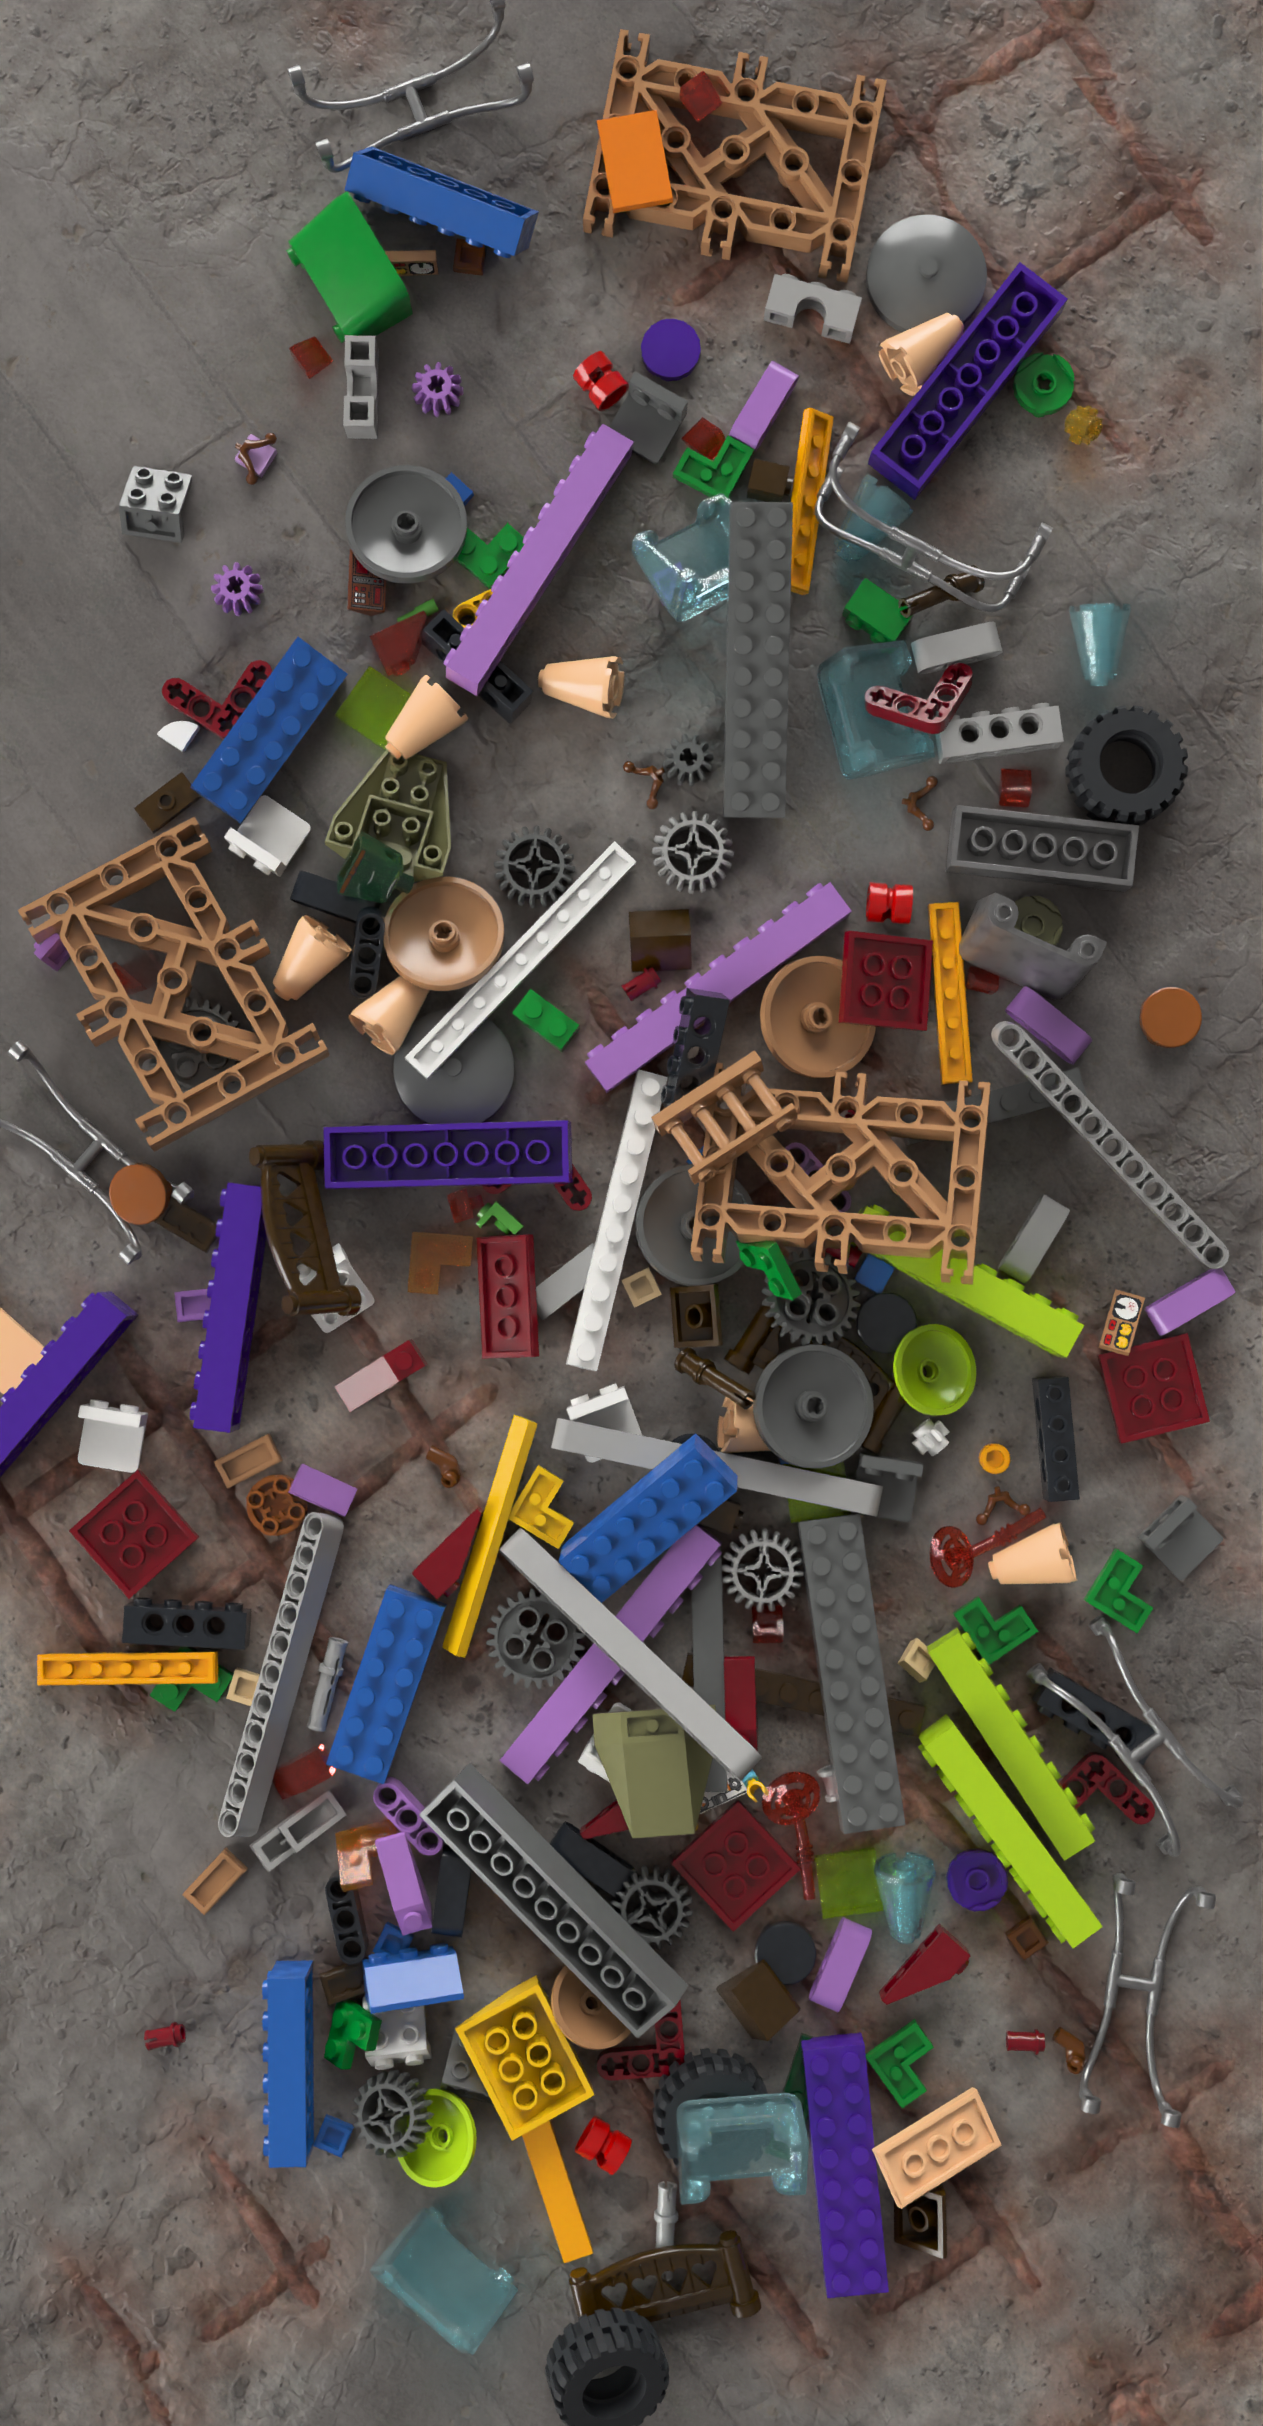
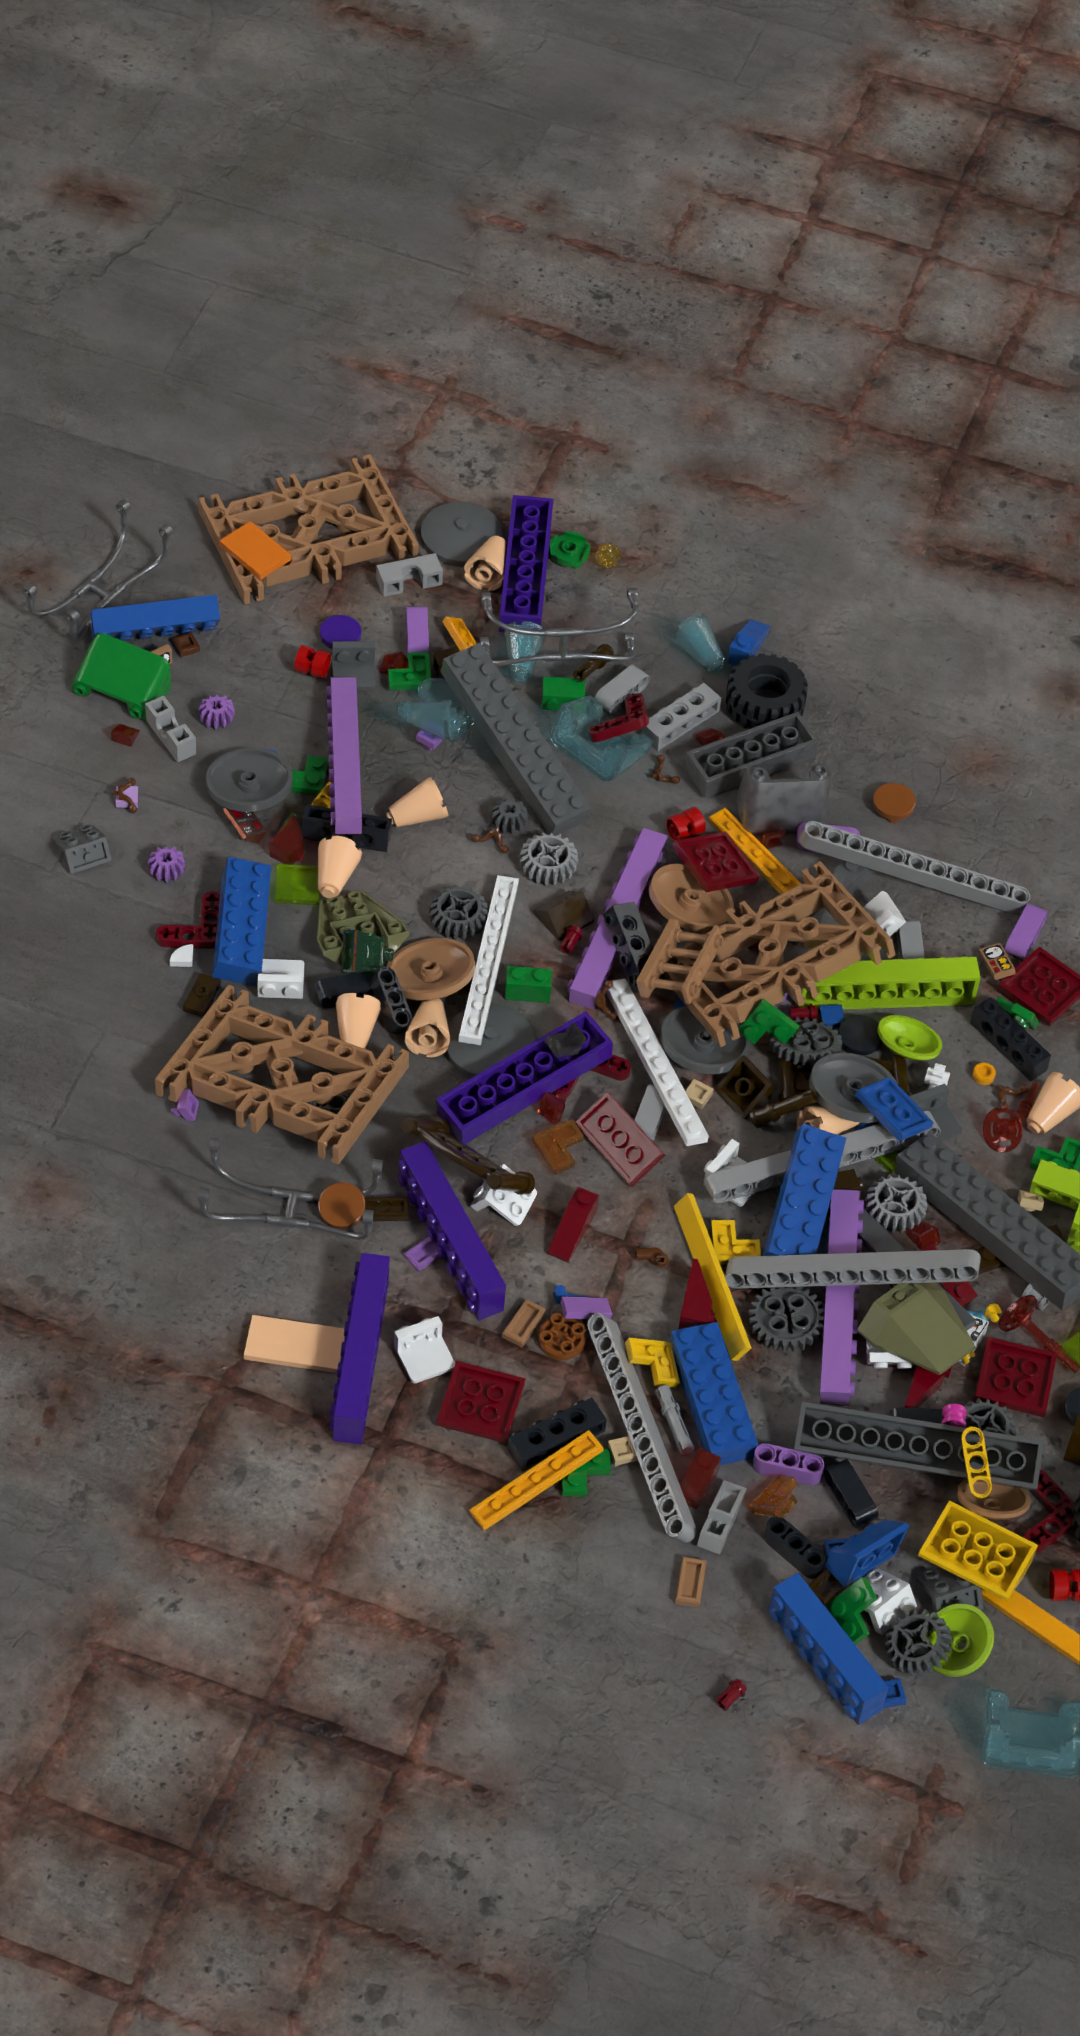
camera: 35 degrees left, 35 degrees down
(310, 1453) = (560, 1292): none -> blue hand
(360, 1602) = (657, 1355): none -> yellow plate
(404, 1883) = (817, 1498): medium lavender slope -> none
(505, 1220) = (581, 1099): bright green bracket -> none
(508, 1156) = (566, 1043): none -> clear smoke bracket
(586, 1978) = (976, 1450): none -> yellow beam
(613, 1095) = (601, 1001): none -> reddish brown piece
(615, 1891) = (954, 1415): none -> dark pink wheel
(699, 96) = (270, 505): clear red slope -> none
(833, 1470) = (894, 1109): none -> blue tile
(1019, 1184) = (885, 913): none -> white bracket
(1092, 1422) = (1023, 1016): none -> green plate
(1166, 667) = (747, 641): none -> blue slope

